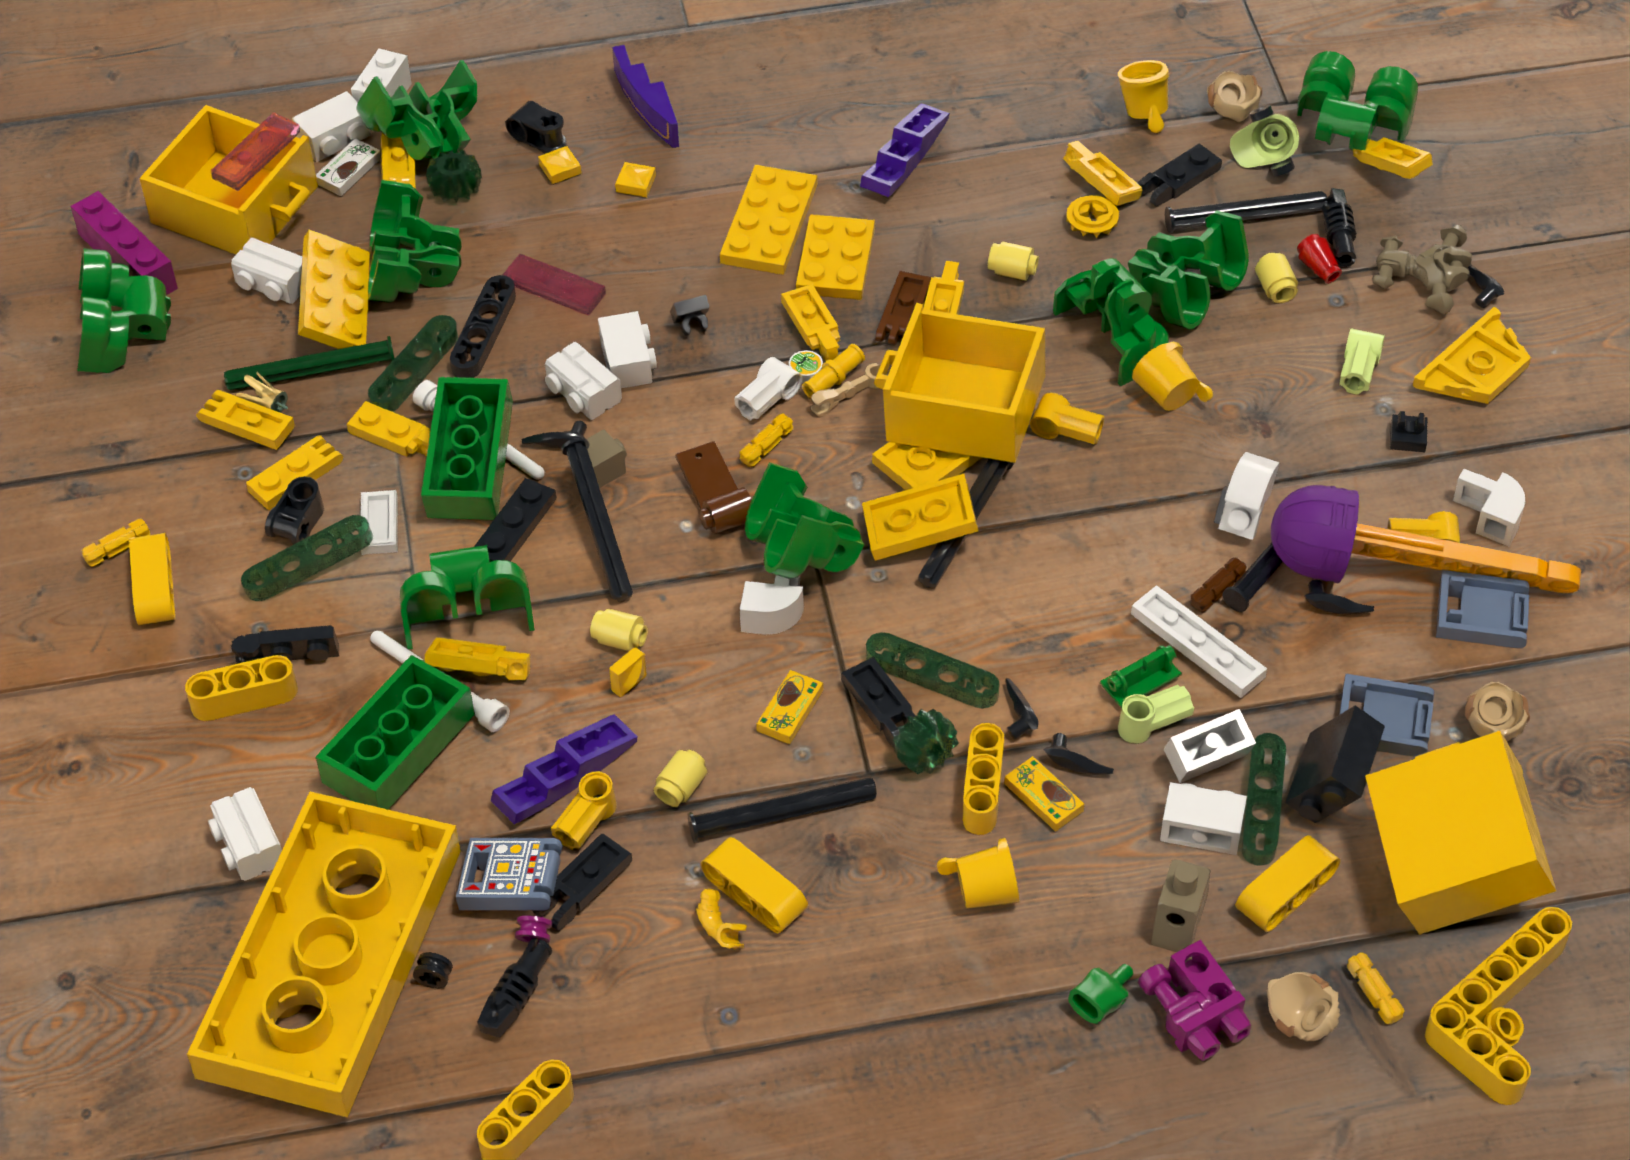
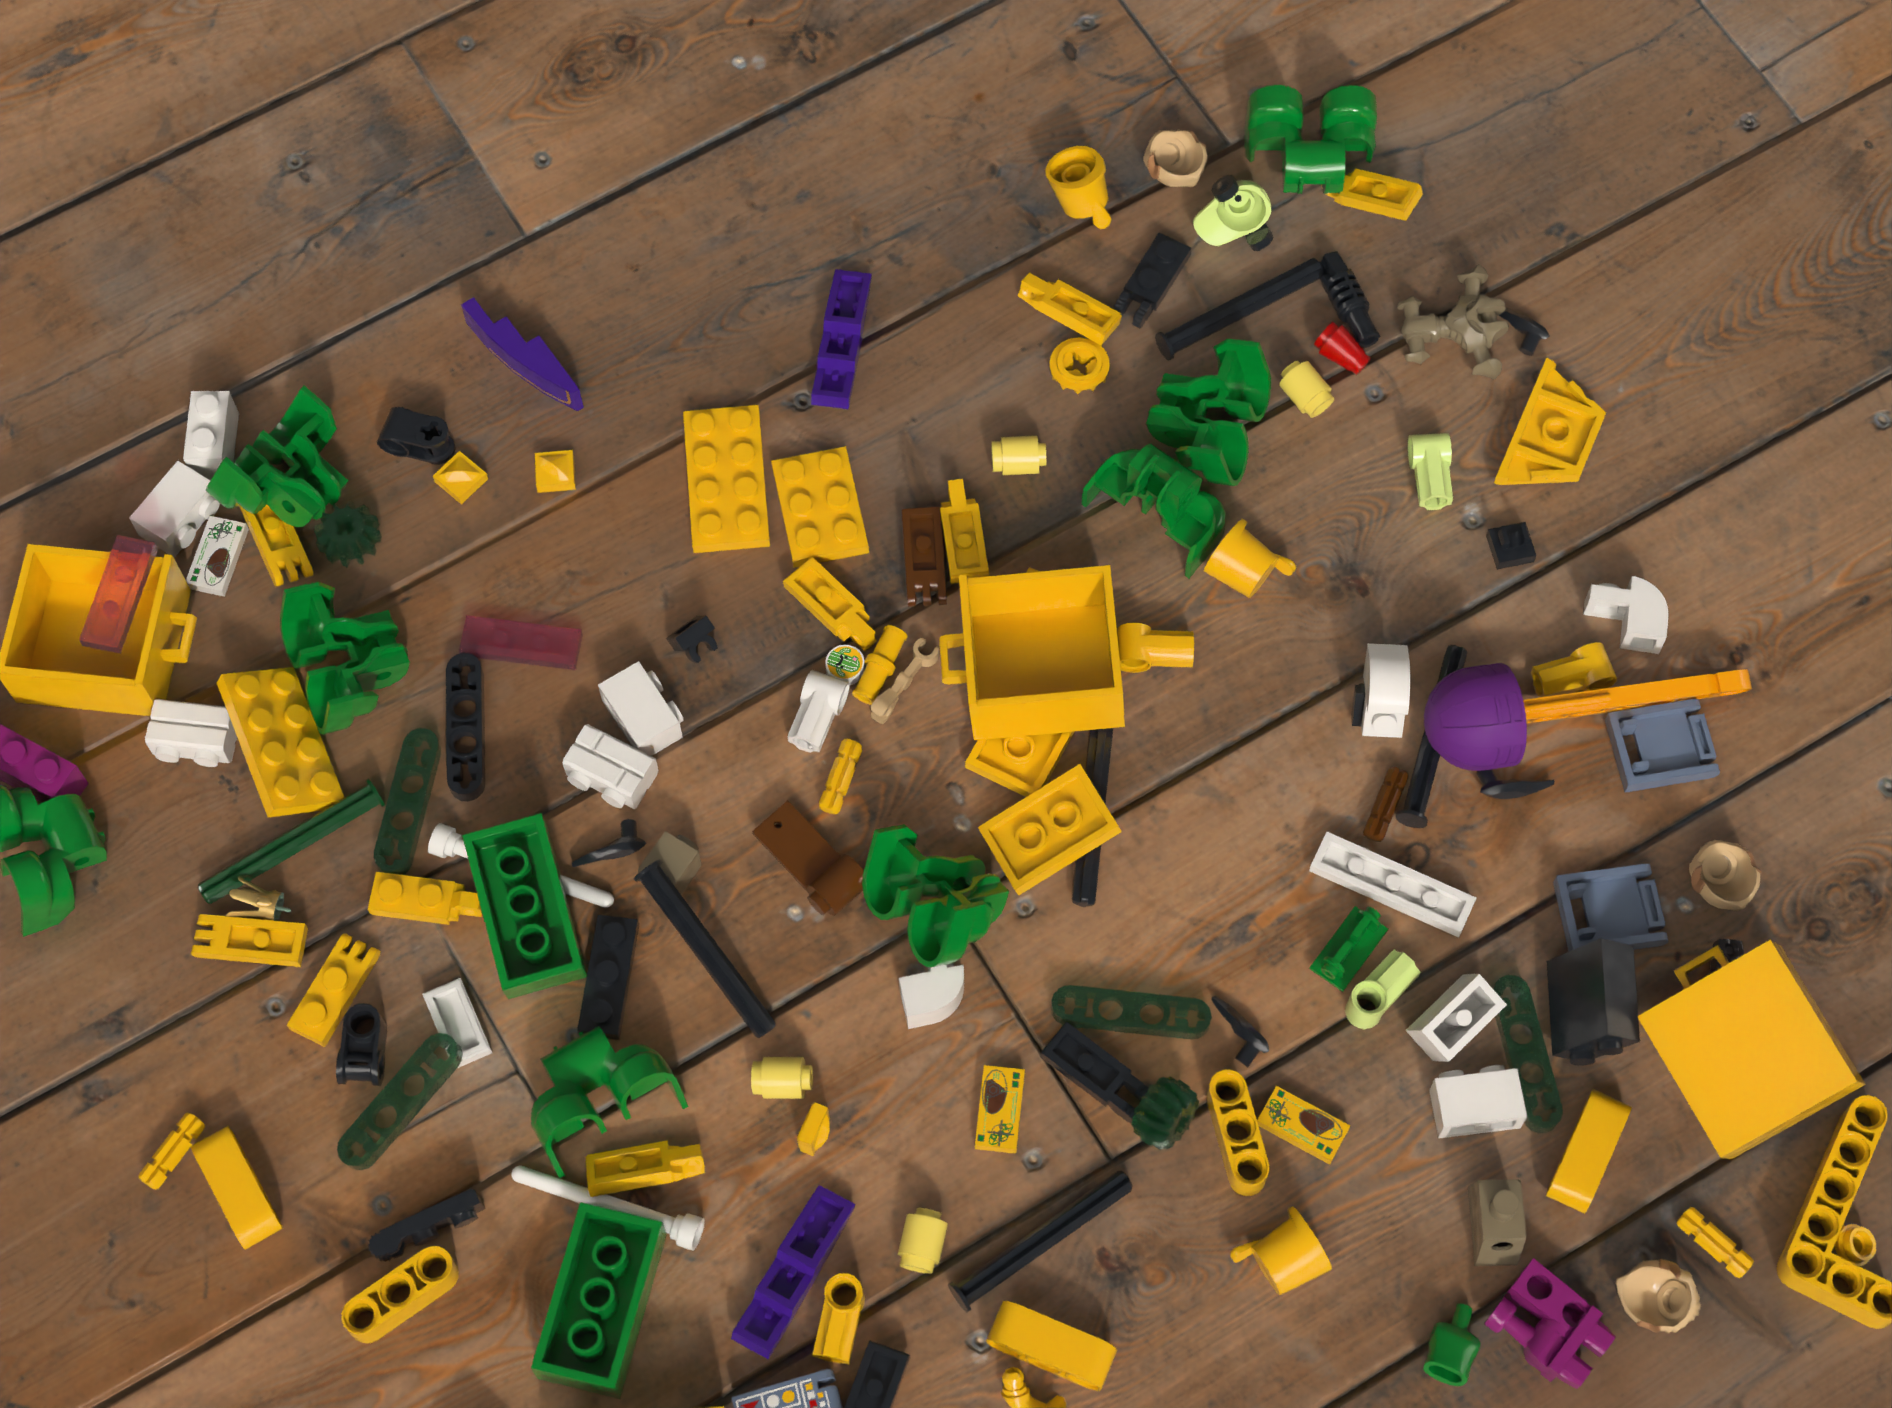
camera: 20 degrees left, 15 degrees up
(1076, 762) = (1316, 1073): black bar -> none

